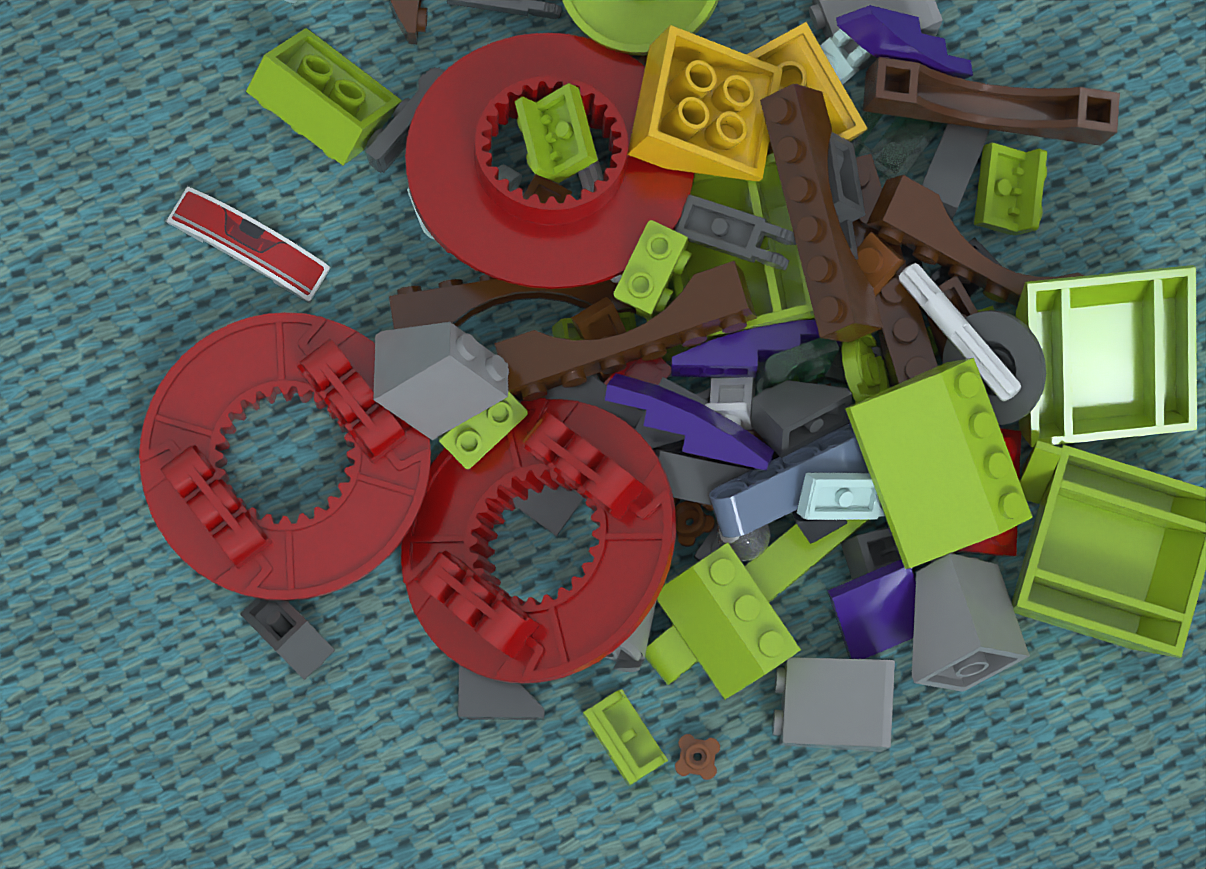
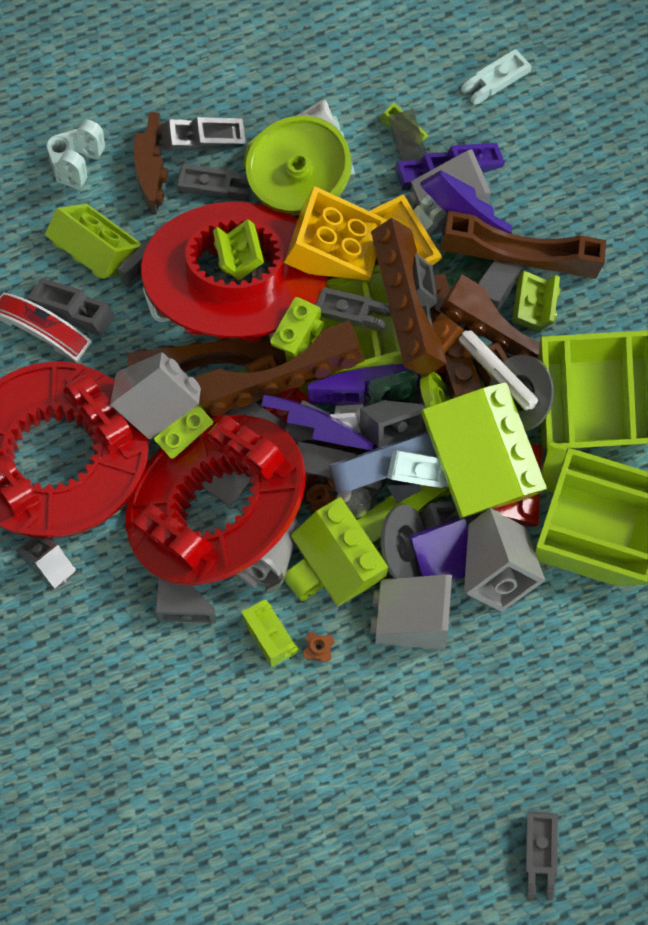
camera: 10 degrees right, 15 degrees down
(296, 210) = (73, 306): none -> dark grey slope
(809, 604) = (395, 541): none -> dark grey hat

